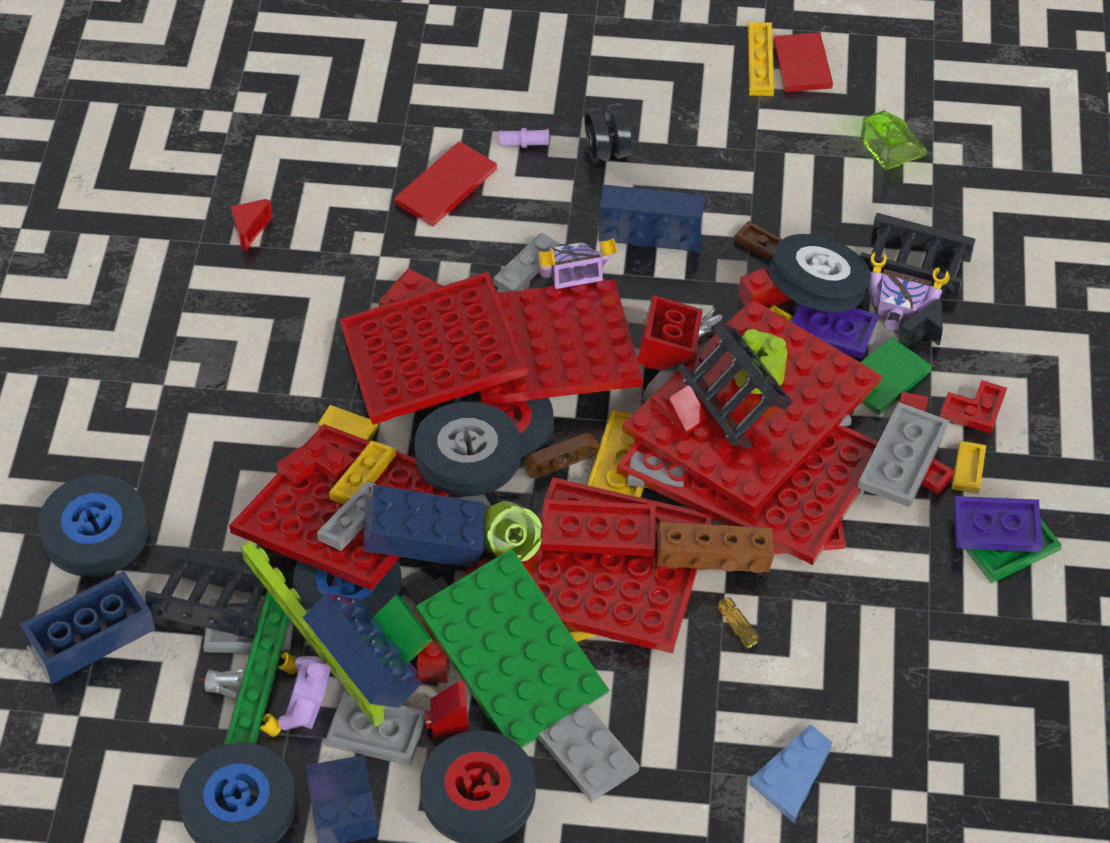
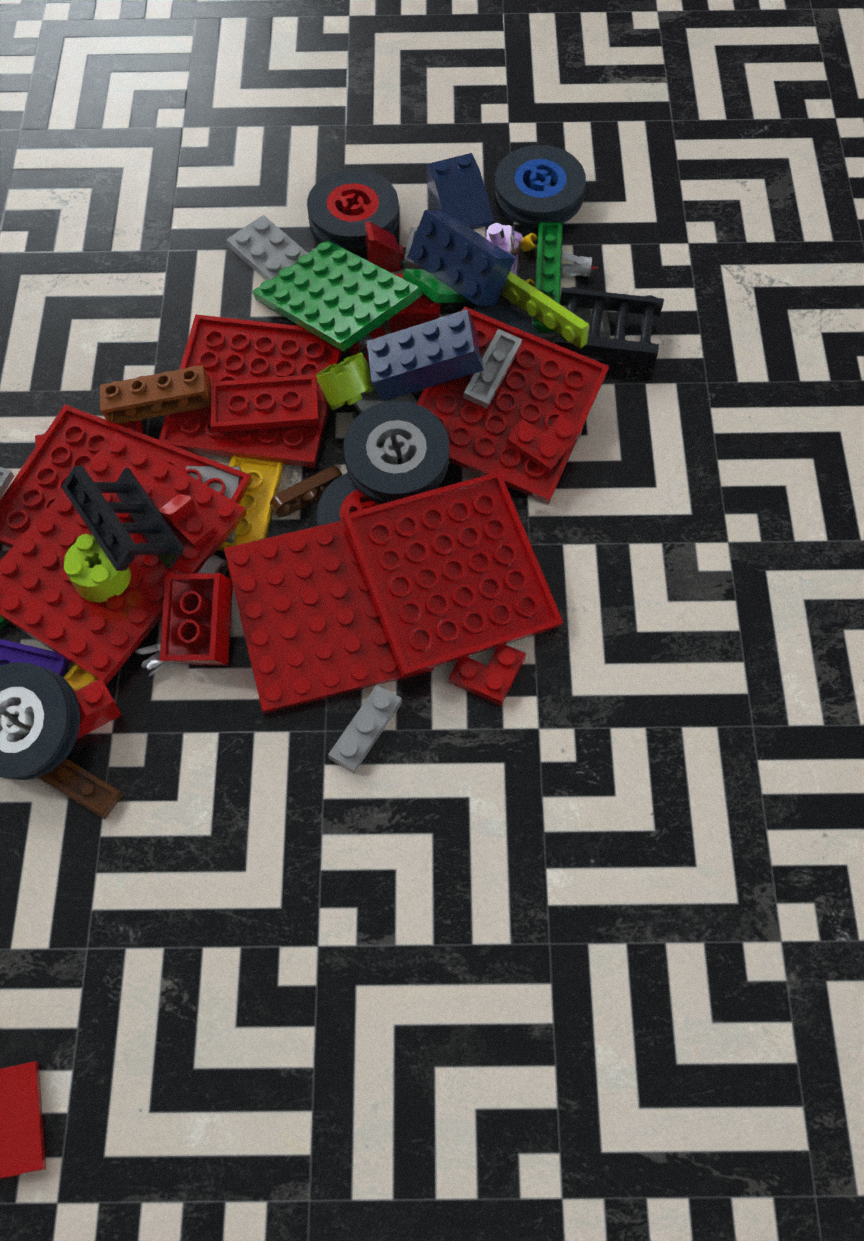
camera: 175 degrees right, 10 degrees up
(70, 536) = (729, 398): black wheel -> none
(87, 627) = (706, 286): dark blue brick -> none
(250, 220) = (704, 744): red slope -> none
(348, 422) = (533, 509): yellow tile -> none
(365, 468) = (496, 428): yellow tile -> none
(445, 183) = (478, 840): red tile -> none
(524, 137) = (389, 922): lavender pin -> none
(575, 263) = (309, 709): lavender torso -> none
(607, 132) = (277, 916): black wheel -> none
(651, 217) = (217, 781): dark blue brick -> none
(738, 622) = (139, 357): clear yellow axle -> none
(760, 59) = (66, 1126): yellow tile -> none
(790, 774) = (101, 252): medium blue wing -> none

